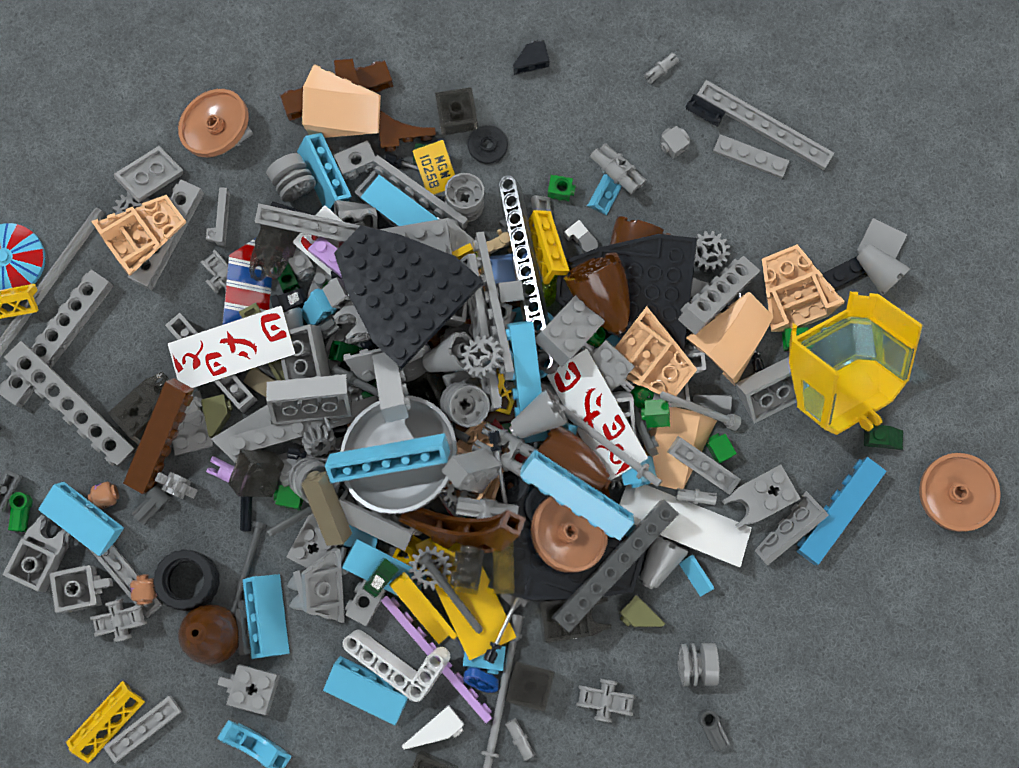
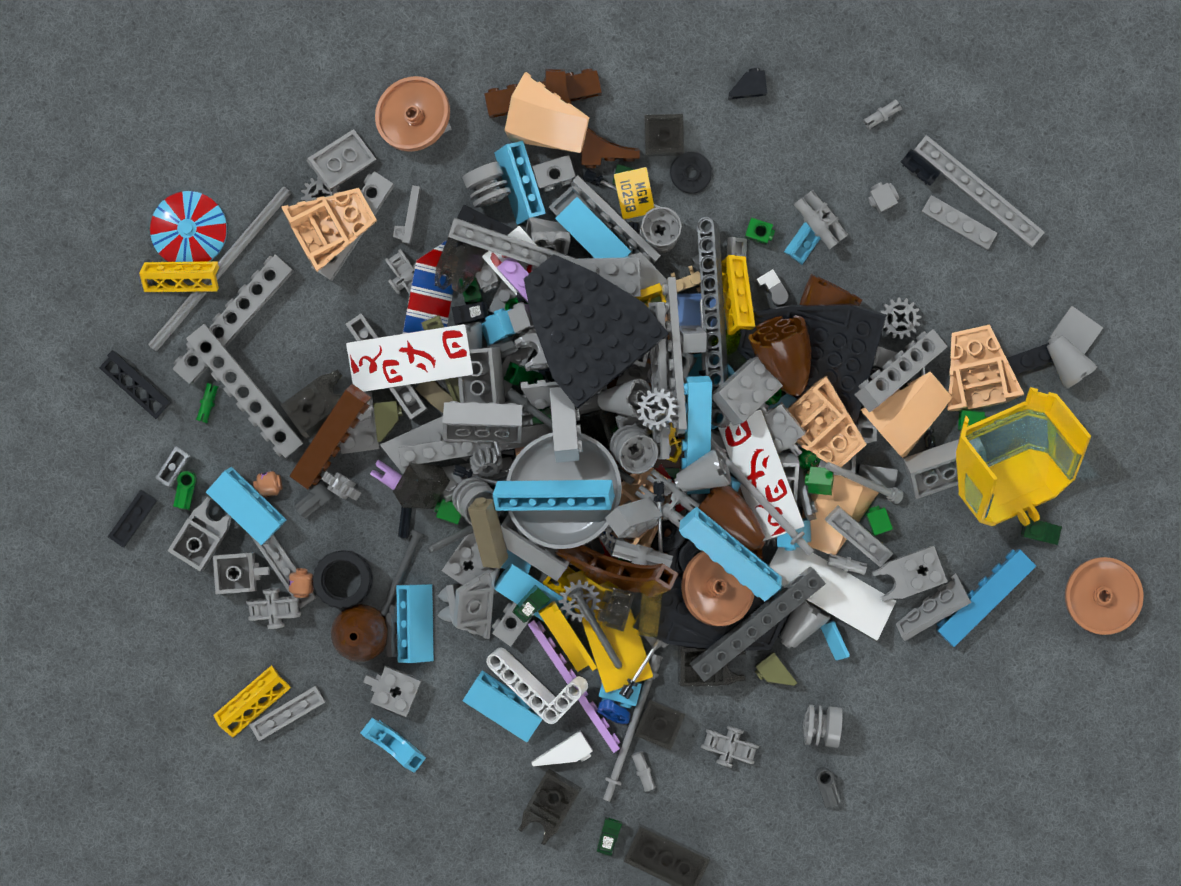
camera: 10 degrees right, 10 degrees up
(36, 423) = (207, 403): none -> green pin

